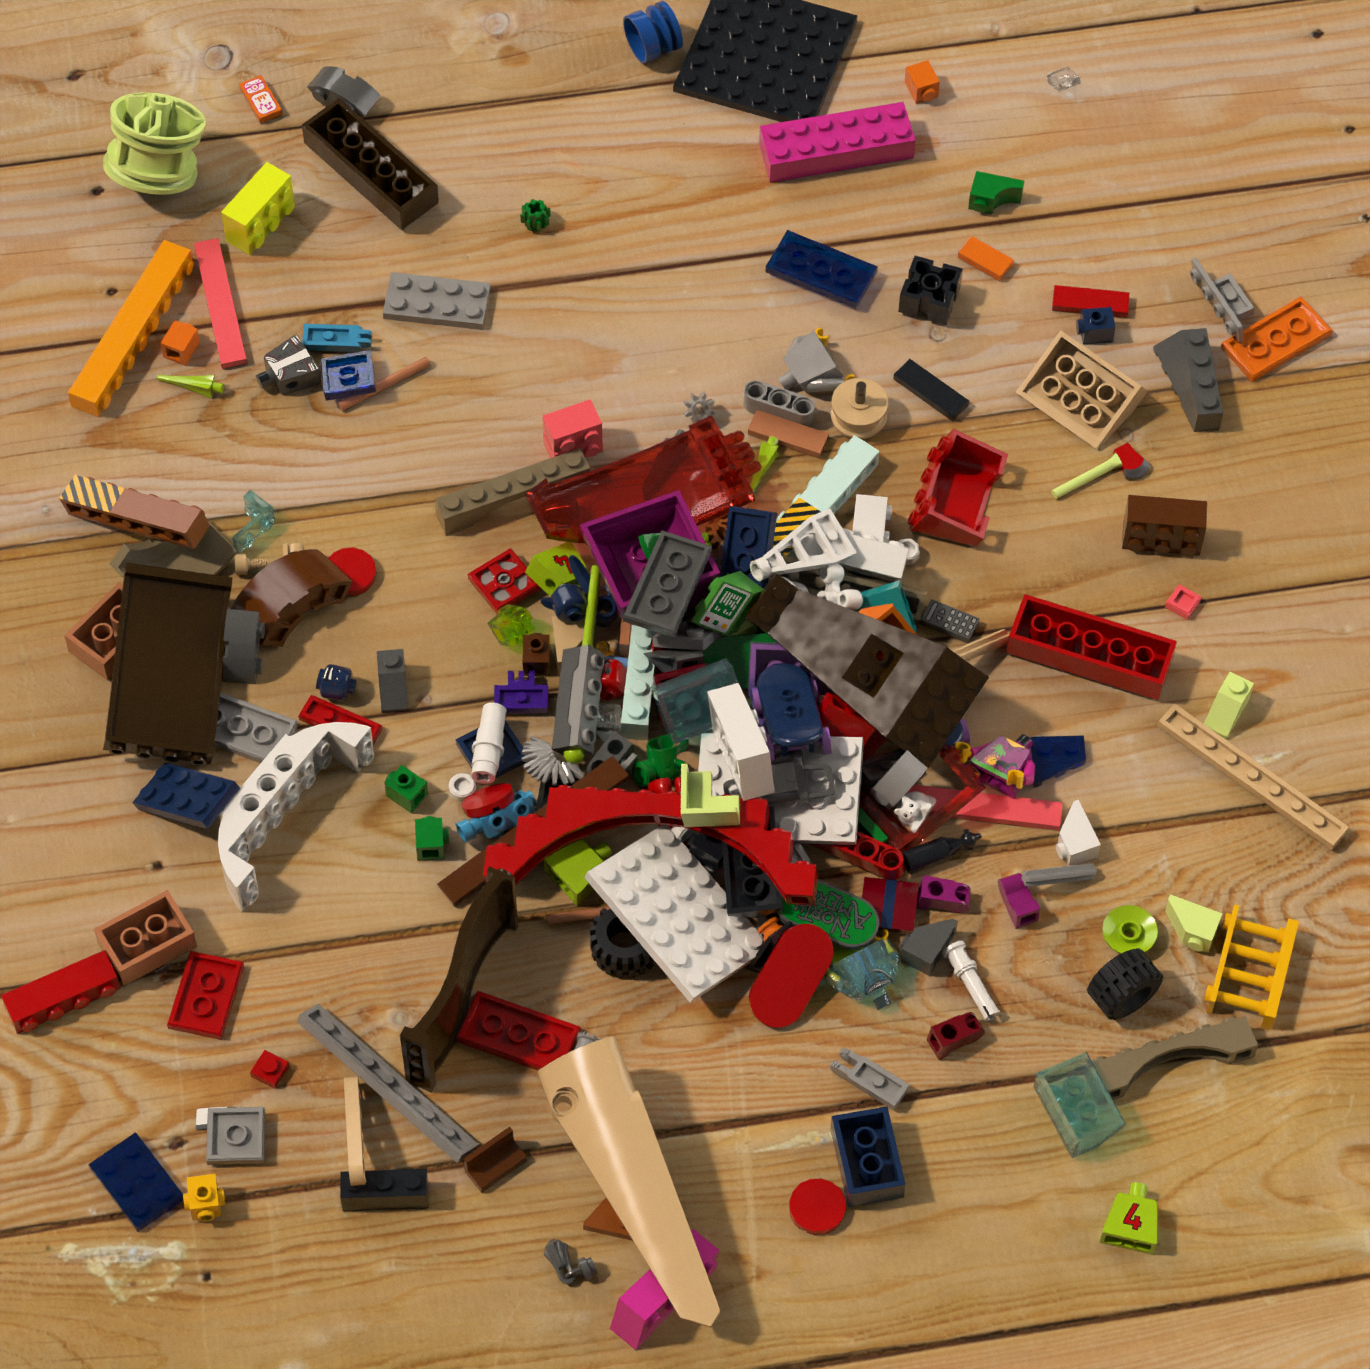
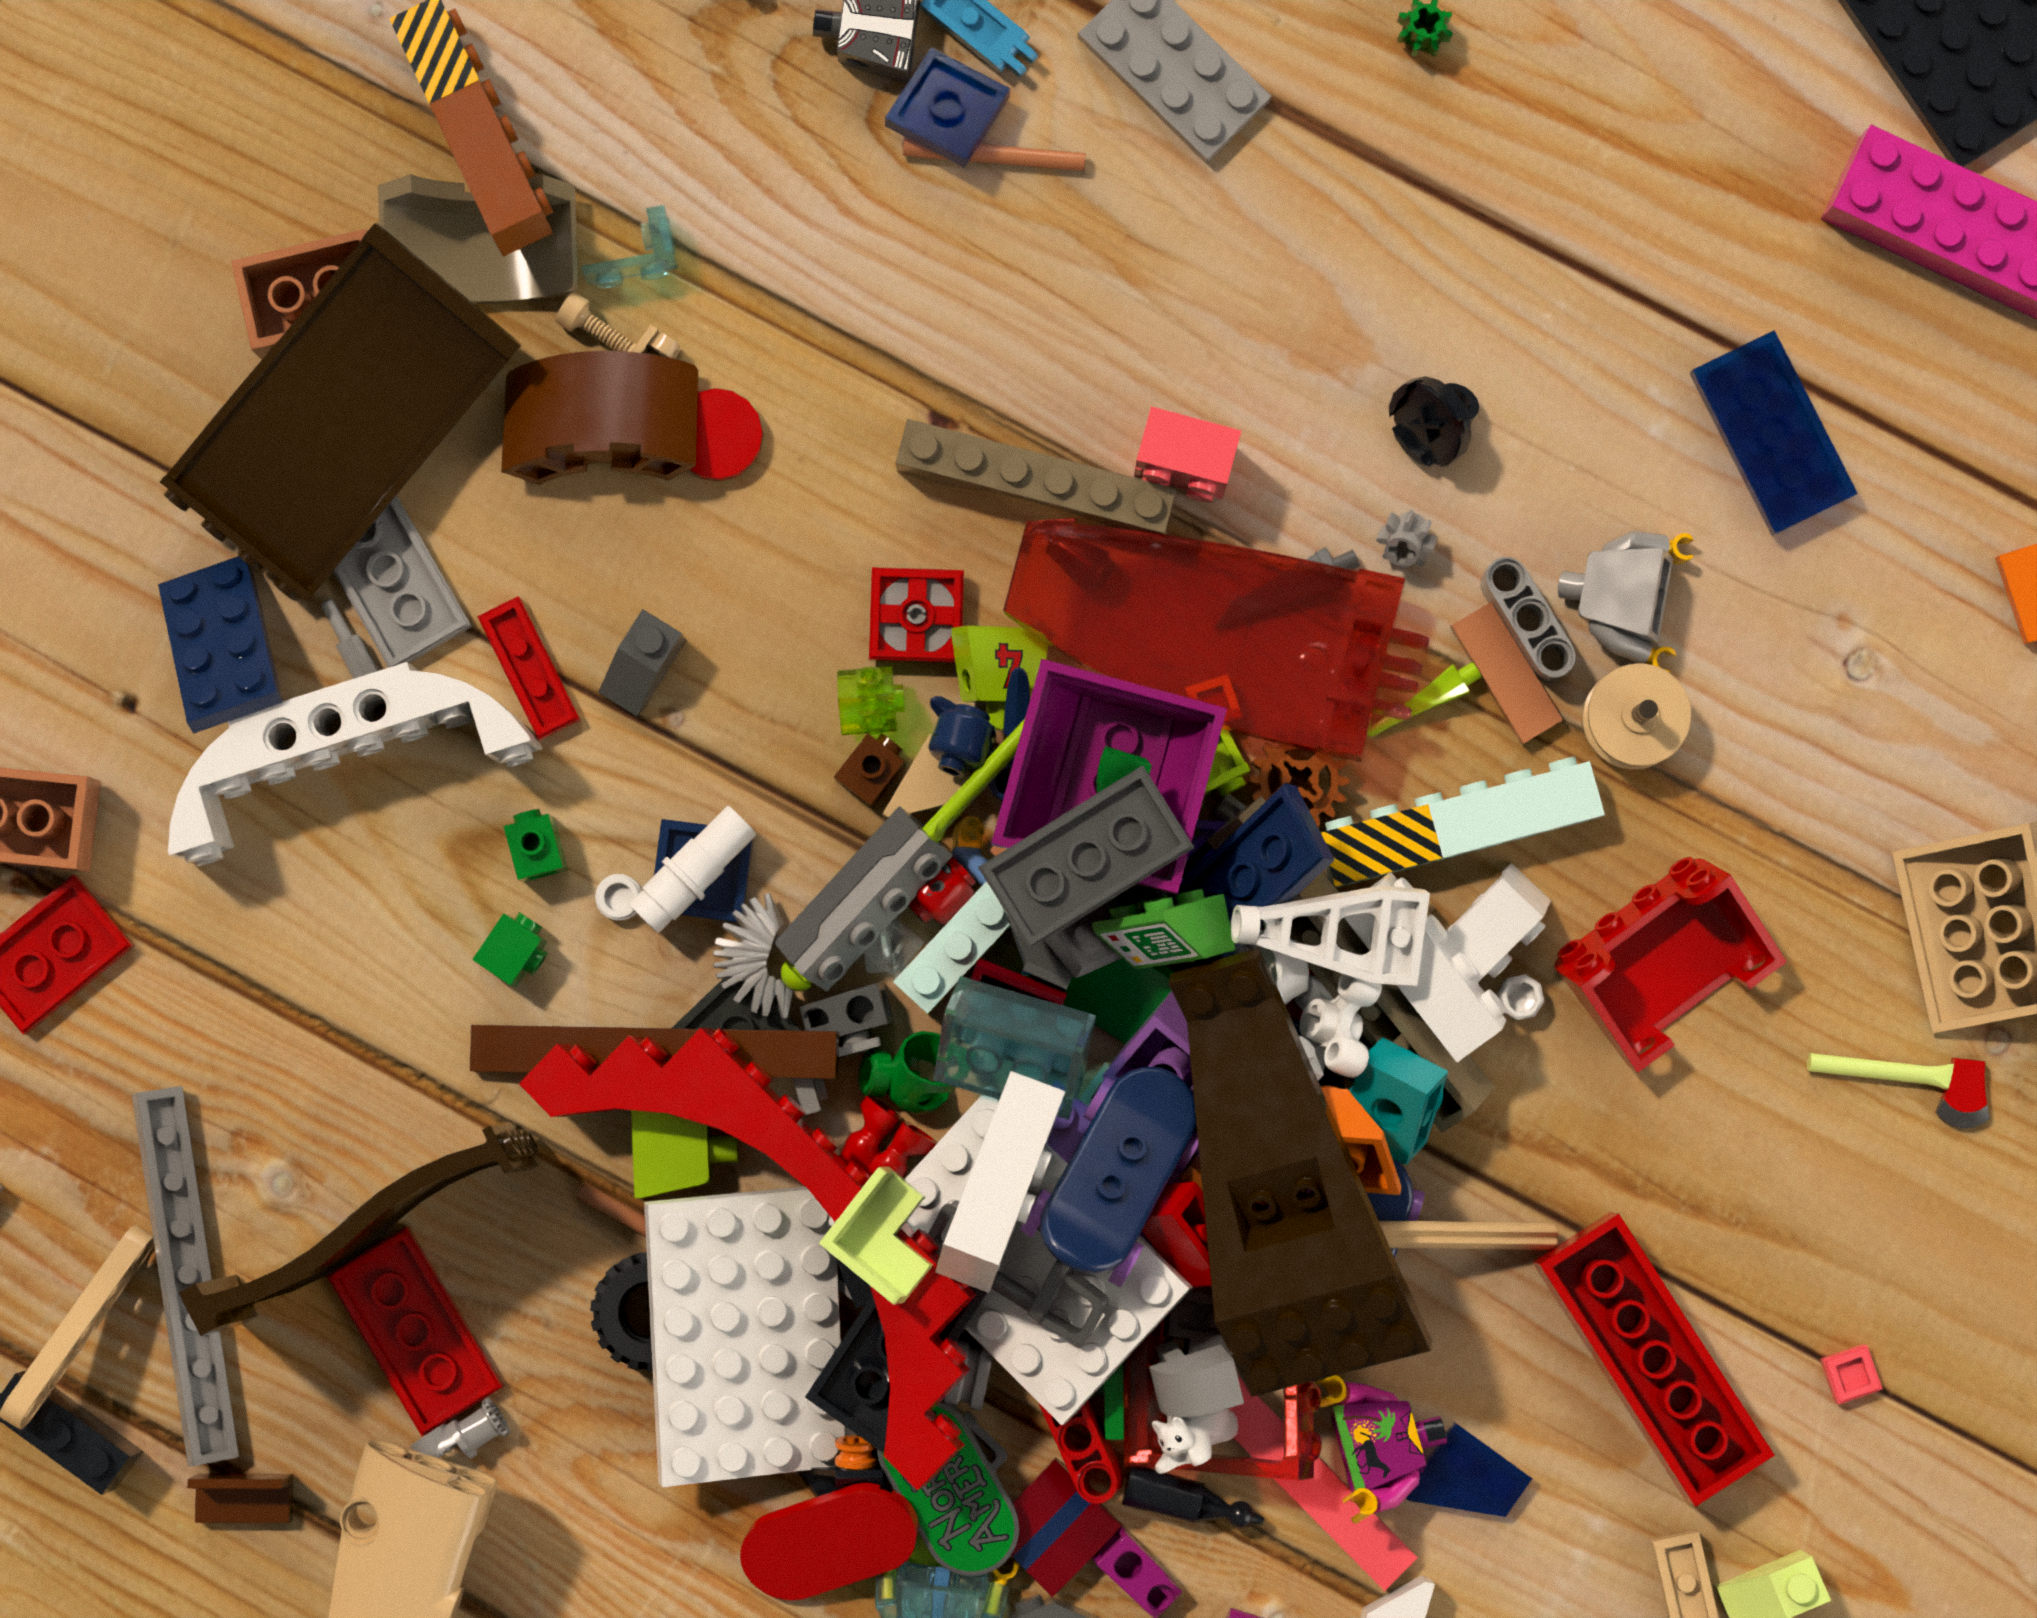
camera: 40 degrees right, 25 degrees up
(242, 641) = (469, 457): dark grey brick -> none
(247, 767) = (350, 646): none -> light grey axle
(269, 1069) = (53, 1130): red plate -> none
(336, 682) = (560, 607): dark blue head -> none
(484, 800) = (627, 956): red tile -> none
(500, 820) = (633, 994): dark azure brick -> none
(522, 695) = (803, 817): dark purple hinge -> none
(669, 354) = (1433, 419): none -> black tile
(930, 290) = (1927, 603): black brick -> none
(931, 389) = (1771, 755): black tile -> none
(949, 621) = (1494, 1153): dark grey tile -> none
(1164, 525) = (1916, 1250): reddish brown brick -> none

